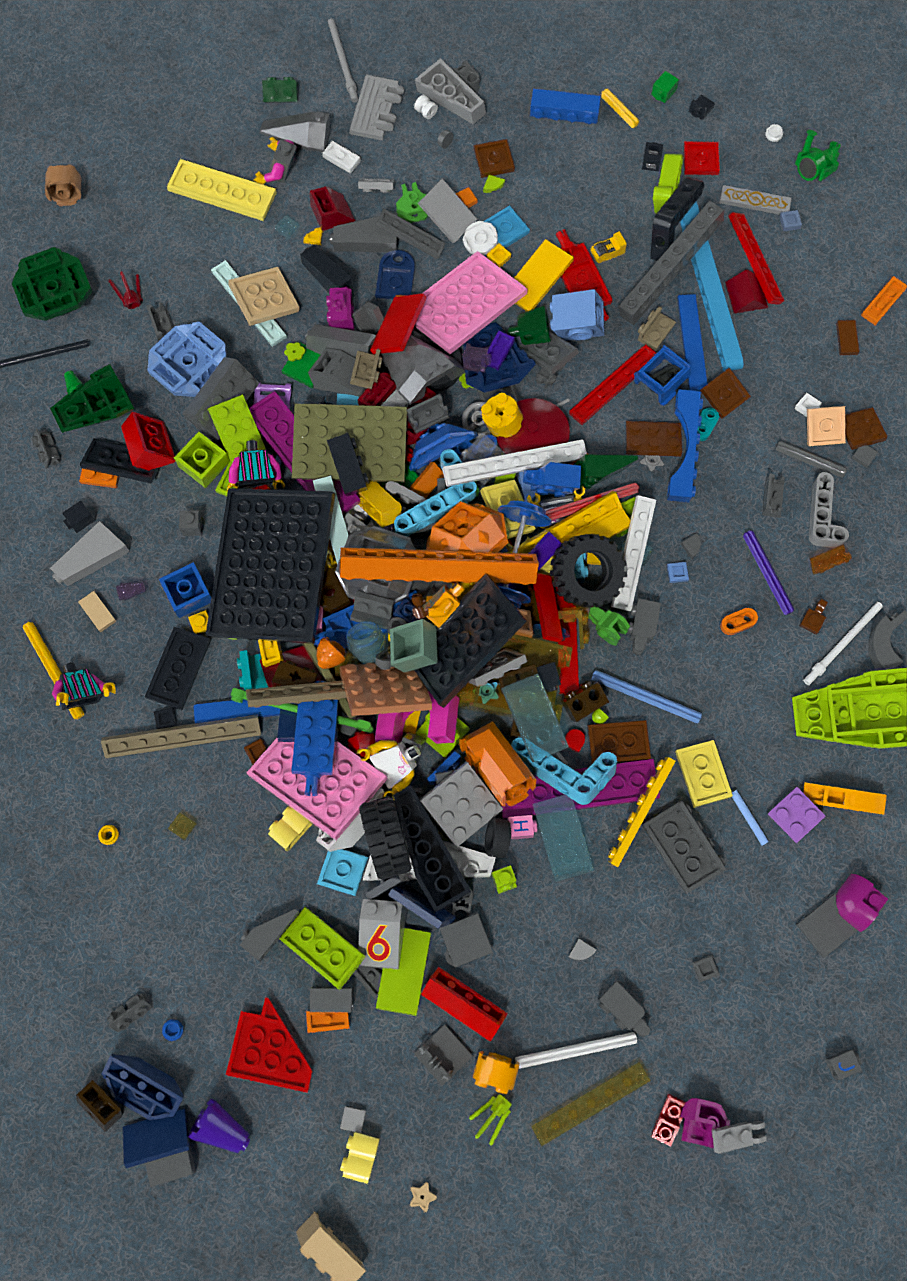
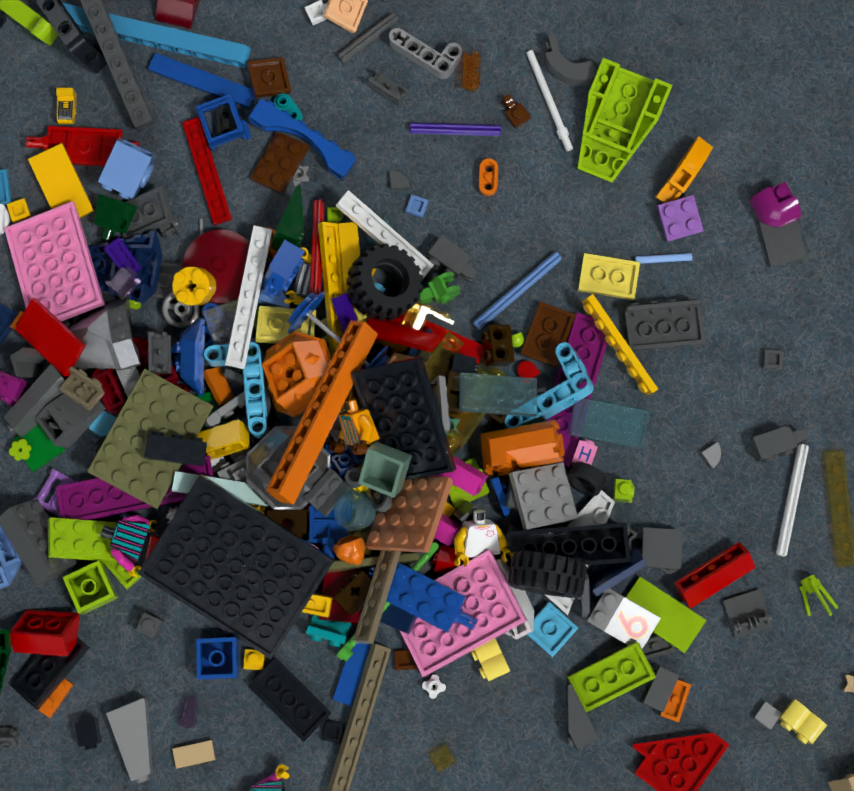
camera: 65 degrees left, 5 degrees up
(245, 794) = (434, 681): none -> white plate
(496, 1072) = (782, 574): light orange brick -> none
(656, 329) = (173, 106): dark tan bracket -> none

